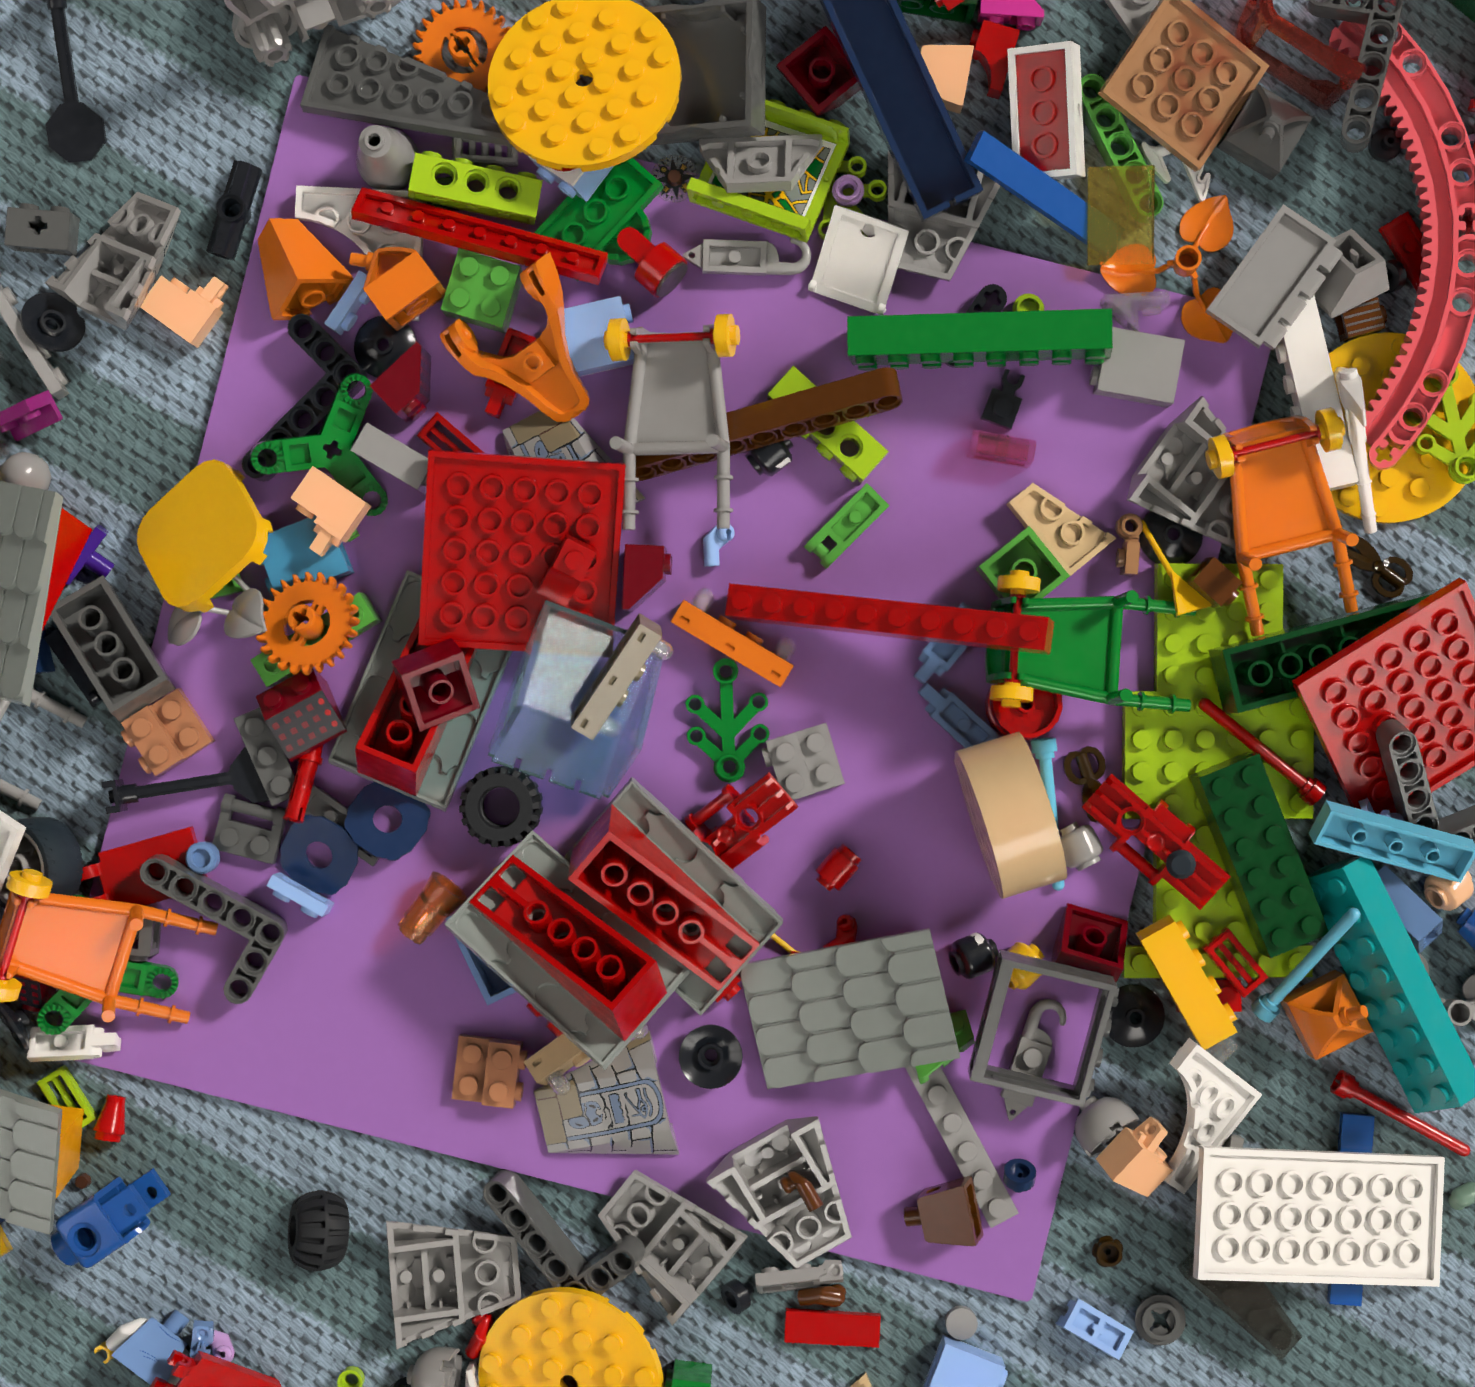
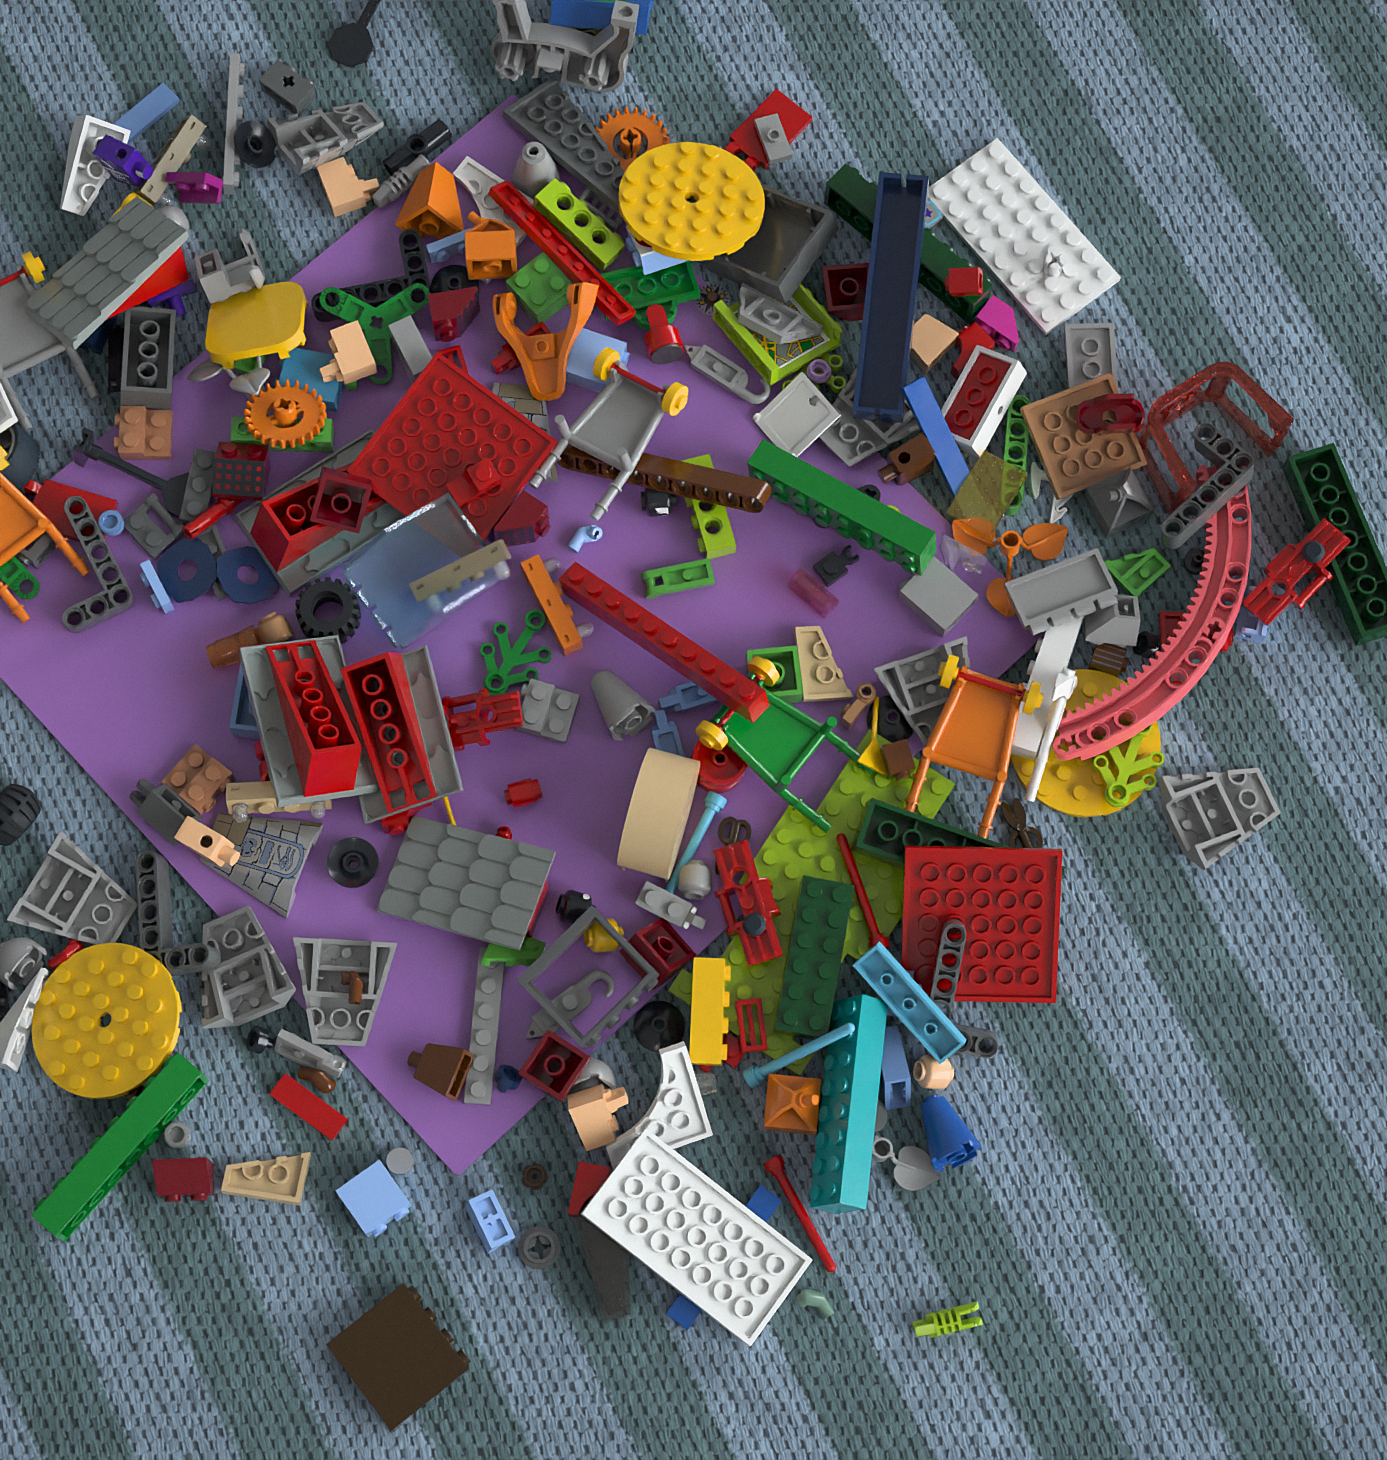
camera: 30 degrees right, 15 degrees down
(135, 500) = (236, 277): none -> light grey piece
(243, 263) = (399, 182): none -> light grey hinge
(458, 862) = (274, 629): none -> medium nougat head
(478, 1130) = (162, 808): none -> dark grey hinge
(548, 1140) = (207, 842): none -> light nougat torso
(877, 708) = (620, 705): none -> light grey cone
(1016, 225) = (909, 461): none -> reddish brown torso
(1066, 1139) = (554, 1066): none -> dark red slope
(1076, 891) = (668, 906): none -> light grey hinge
(1171, 1225) = (586, 1184): none -> red arch
(1225, 36) = (1127, 410): none -> dark red piece
(1331, 196) = (1137, 571): none -> bright green wing

